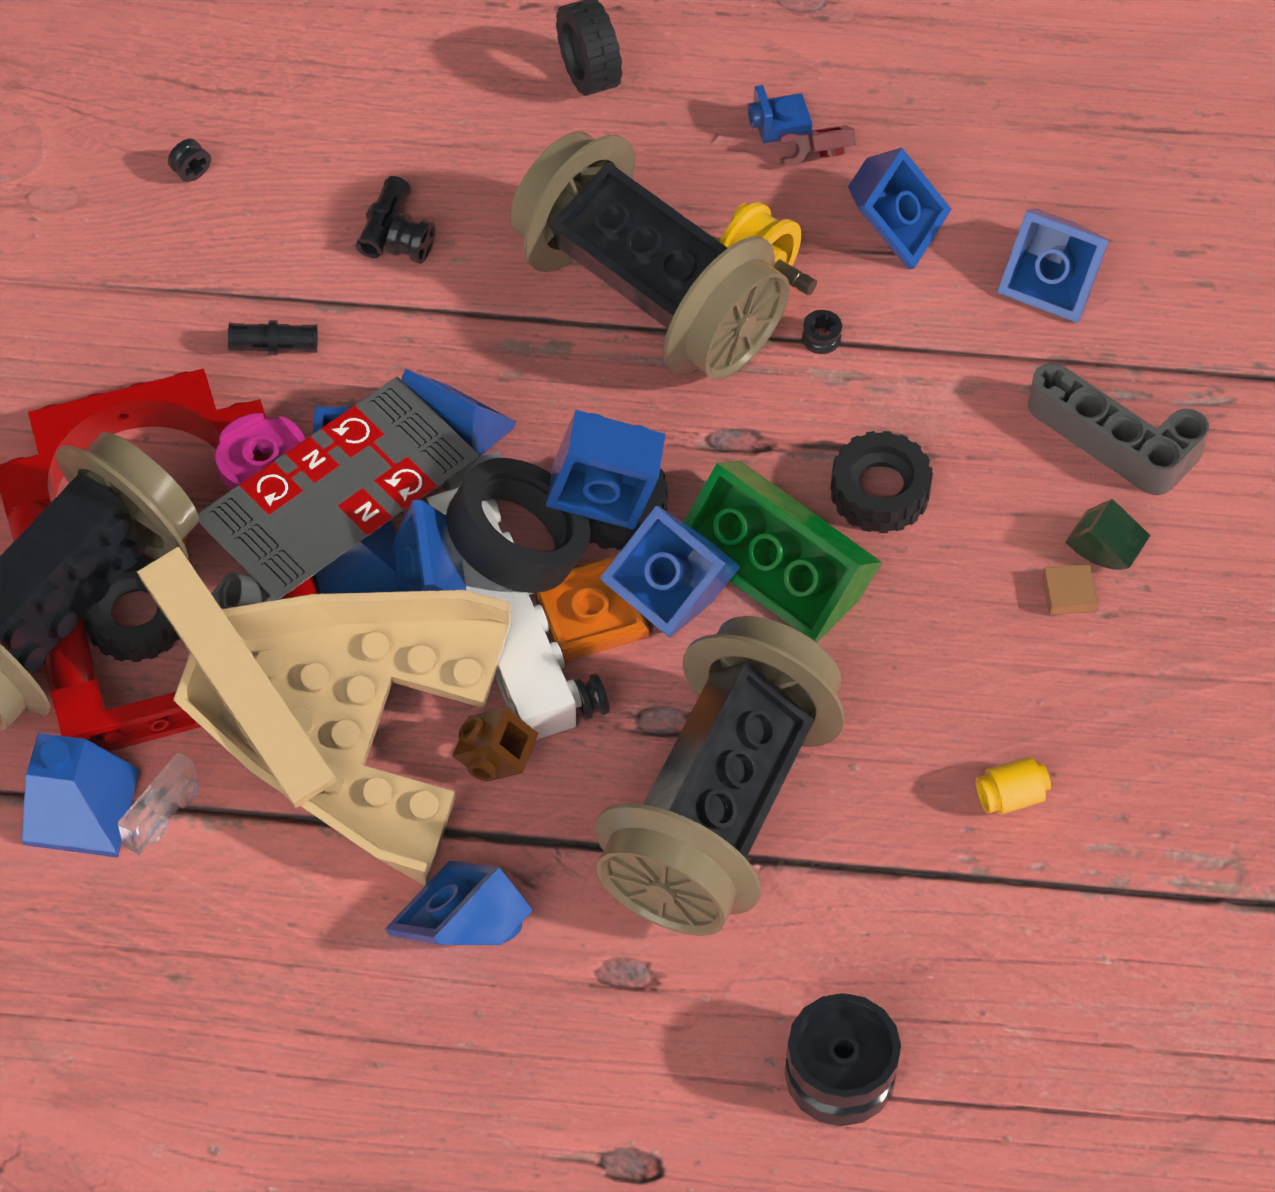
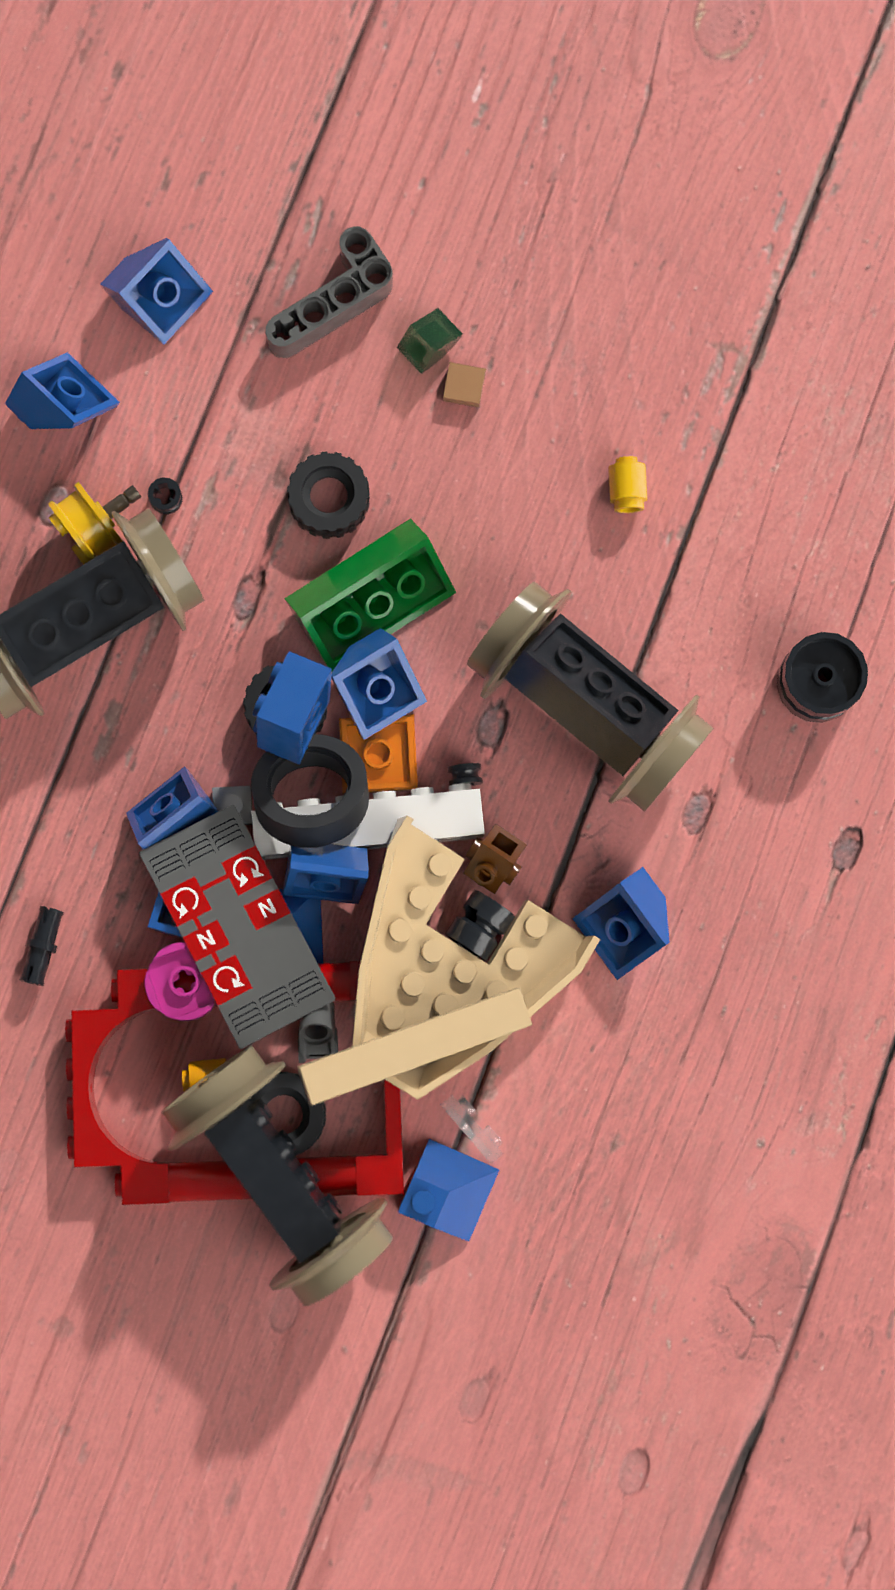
camera: 80 degrees left, 25 degrees up
(410, 751) = (480, 925): none -> black wheel

